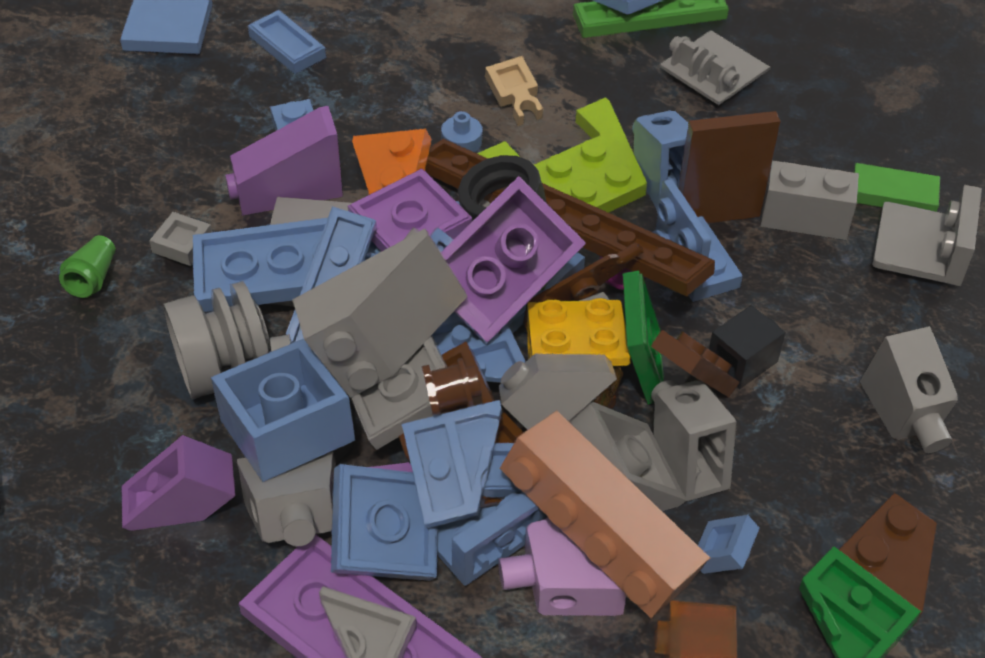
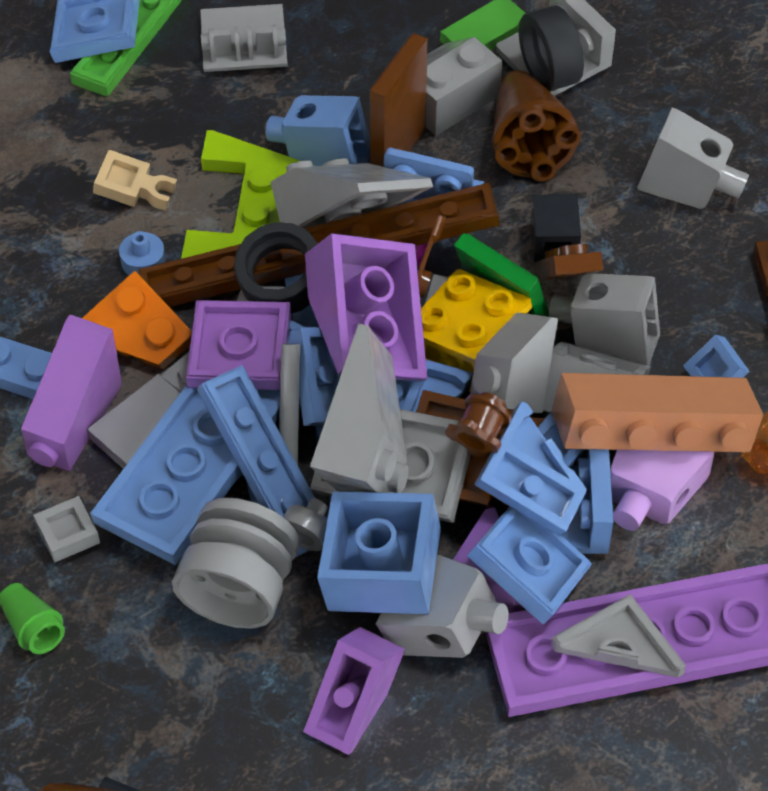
camera: 50 degrees left, 5 degrees up
(608, 183) = (340, 190): none -> light grey slope
(820, 266) = (532, 128): none -> reddish brown cone
(903, 222) = (551, 47): none -> black tyre

